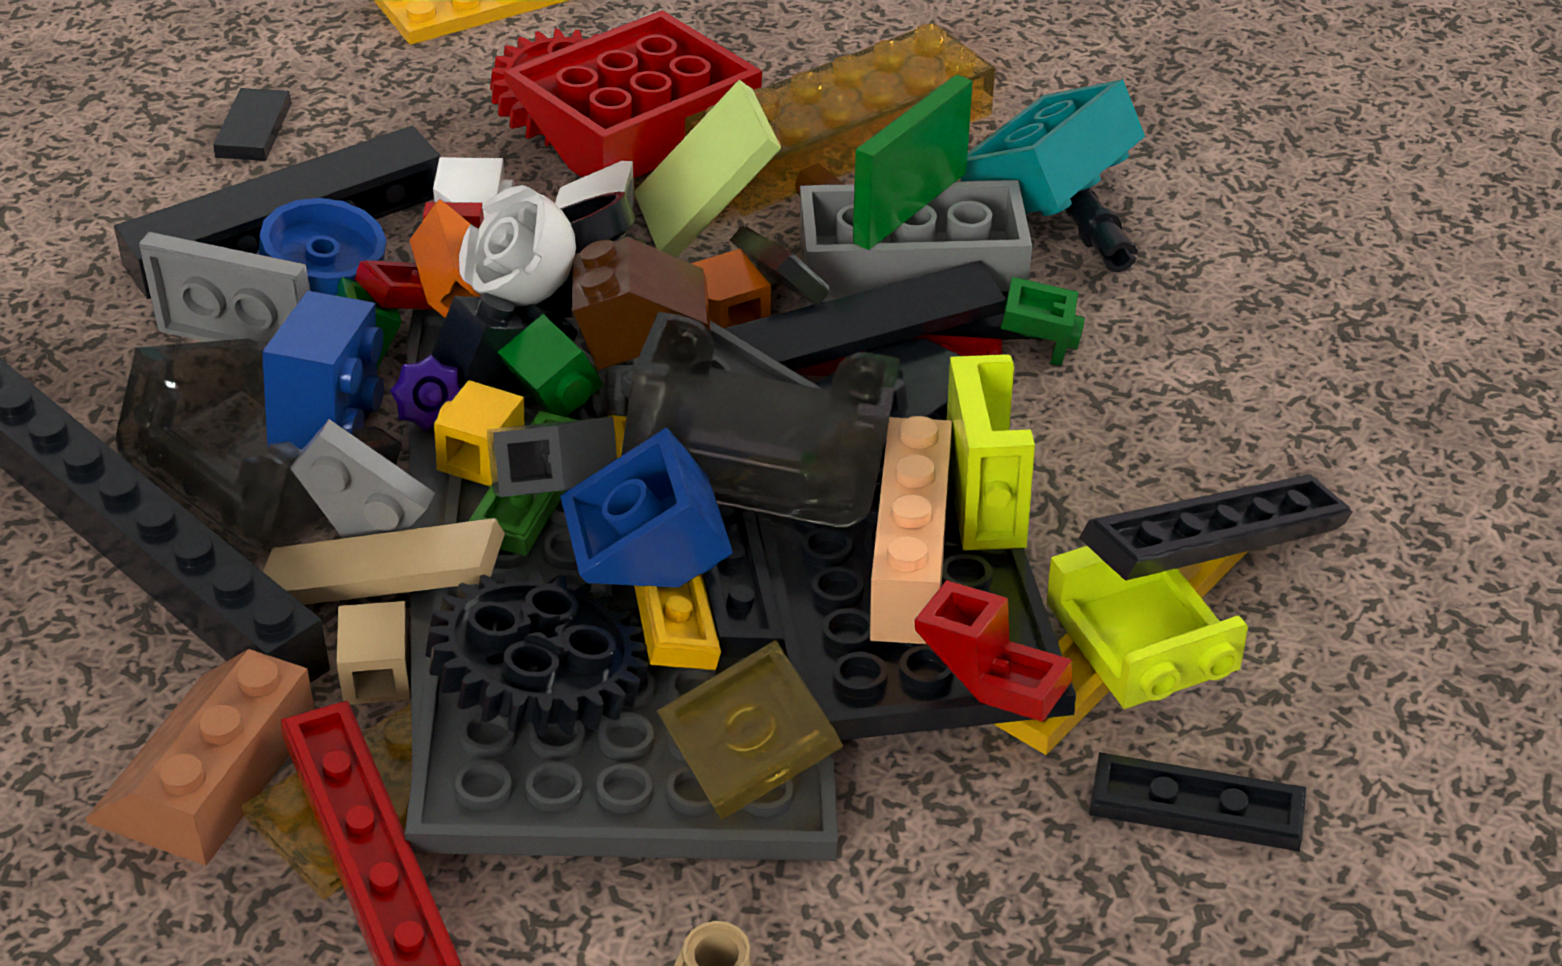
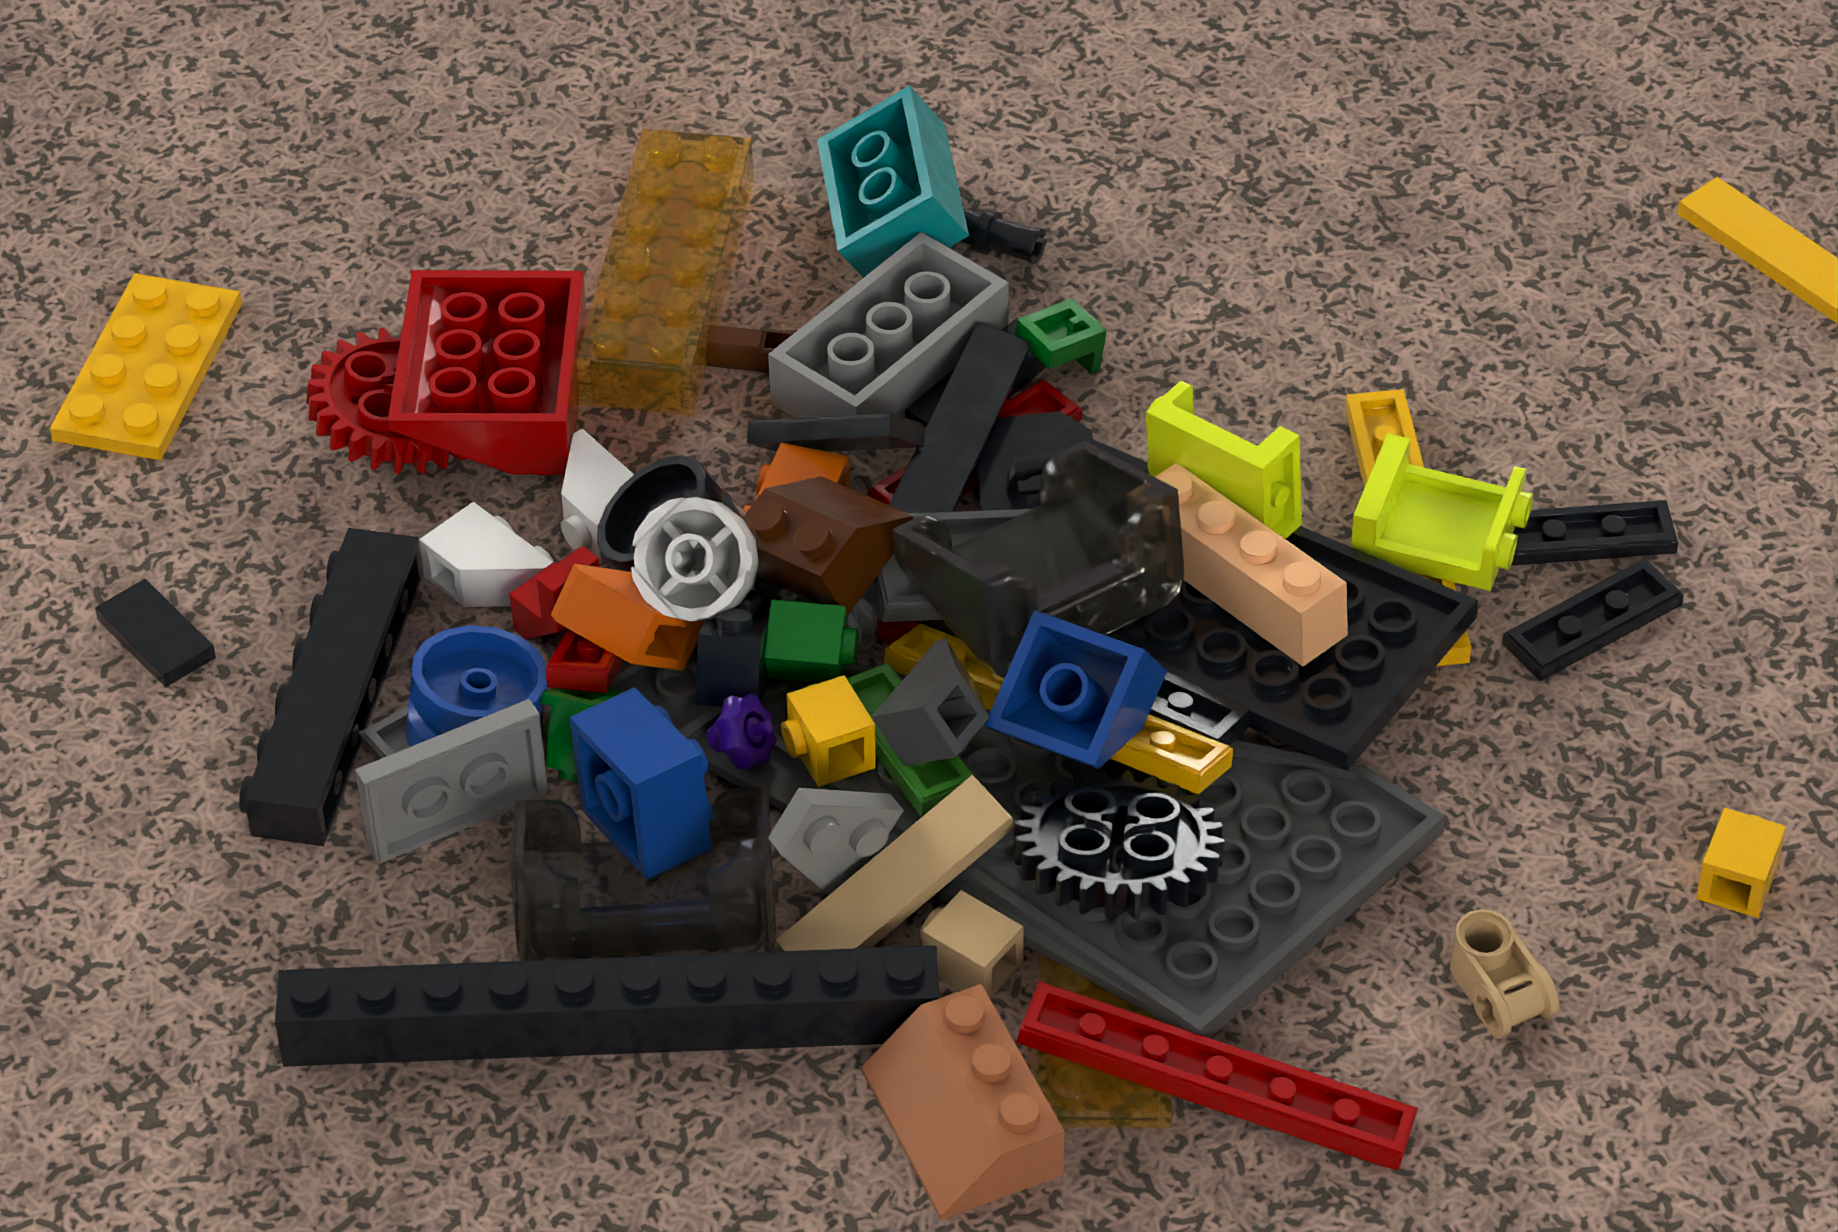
camera: 45 degrees left, 5 degrees up
(707, 170) = (666, 383): yellowish green tile -> none
(749, 729) = (1317, 784): clear yellow tile -> none
(911, 161) = (875, 271): green tile -> none
(972, 639) = (1420, 617): red slope -> none
(1214, 526) = (1416, 412): black tile -> none
(1287, 735) = (1596, 533): none -> black tile

